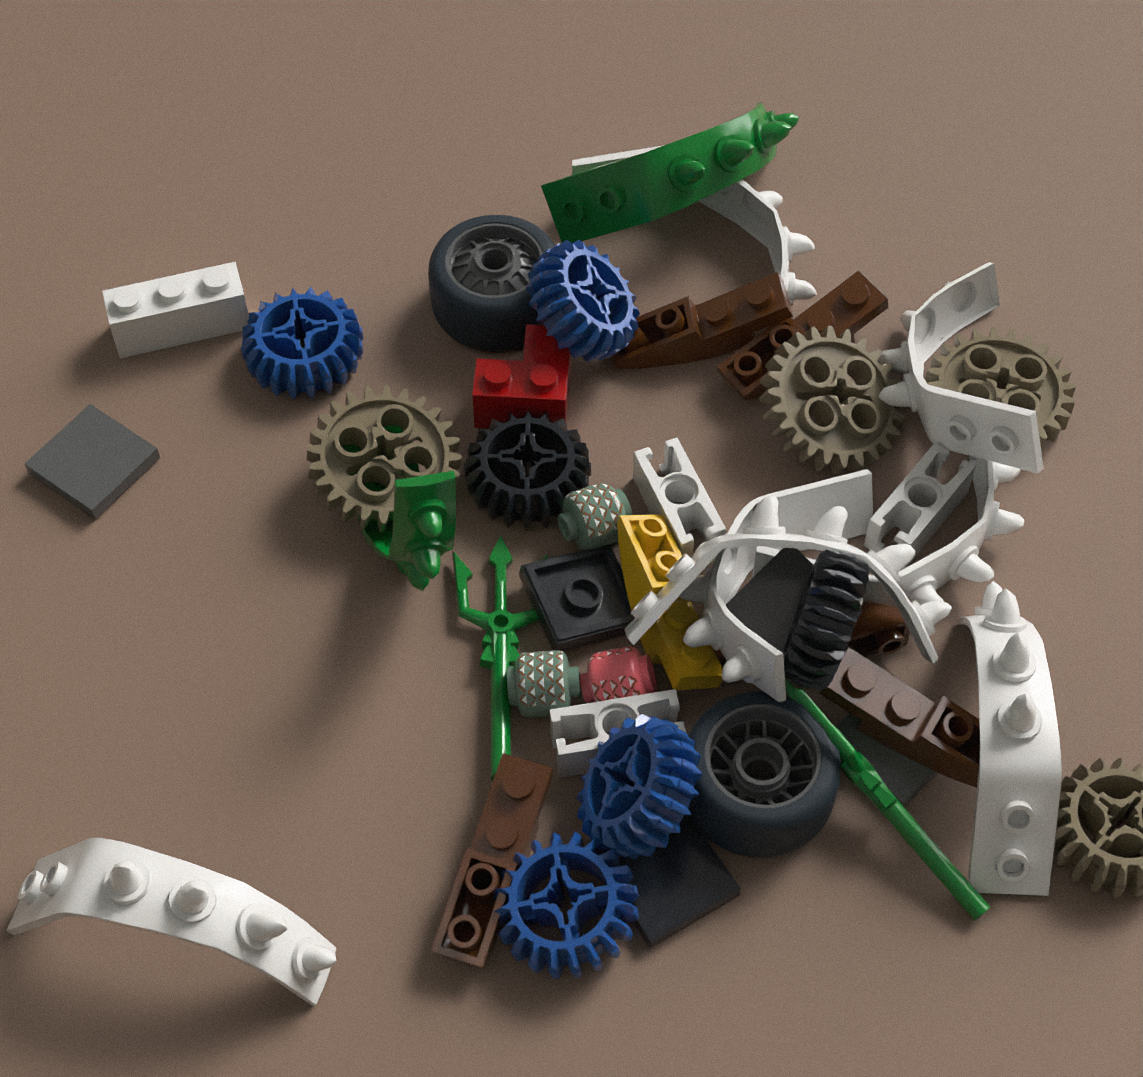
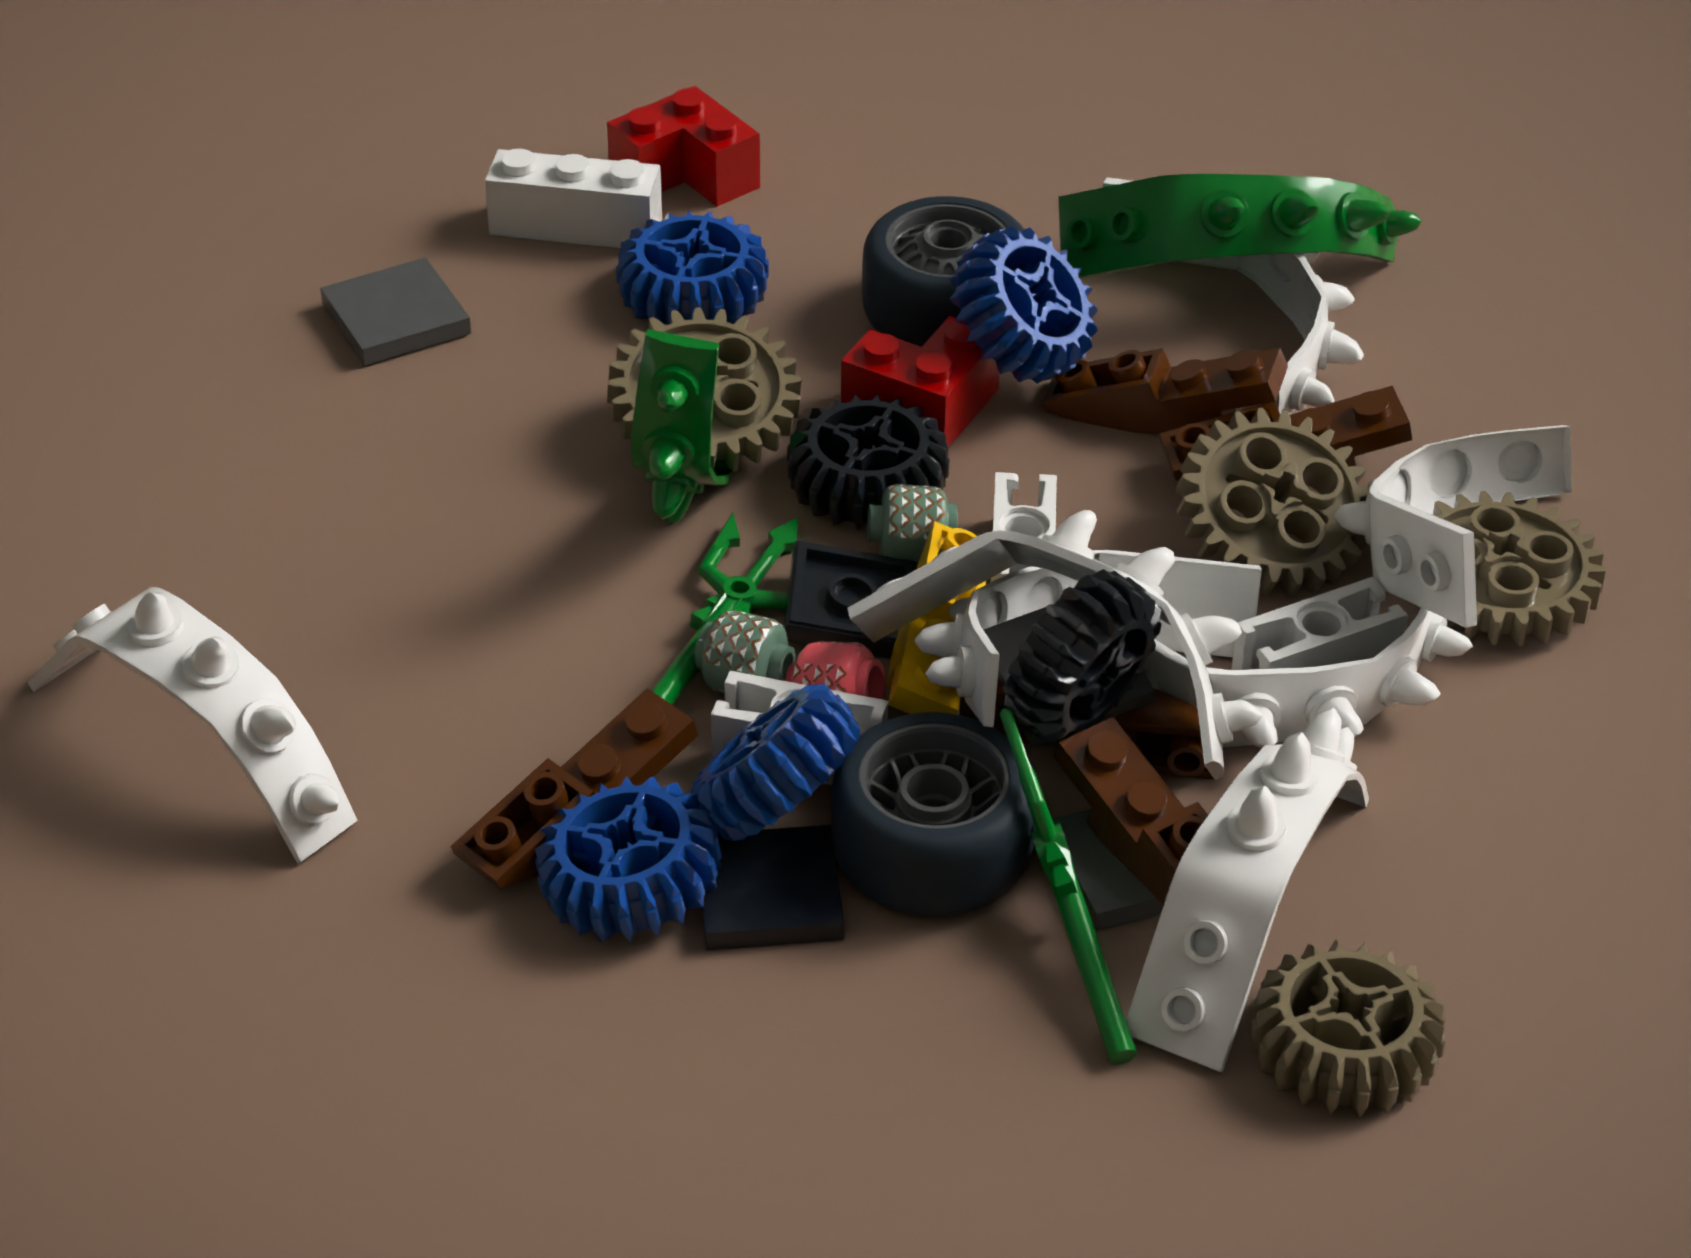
camera: 25 degrees right, 15 degrees down
(233, 223) = (692, 143): none -> red brick

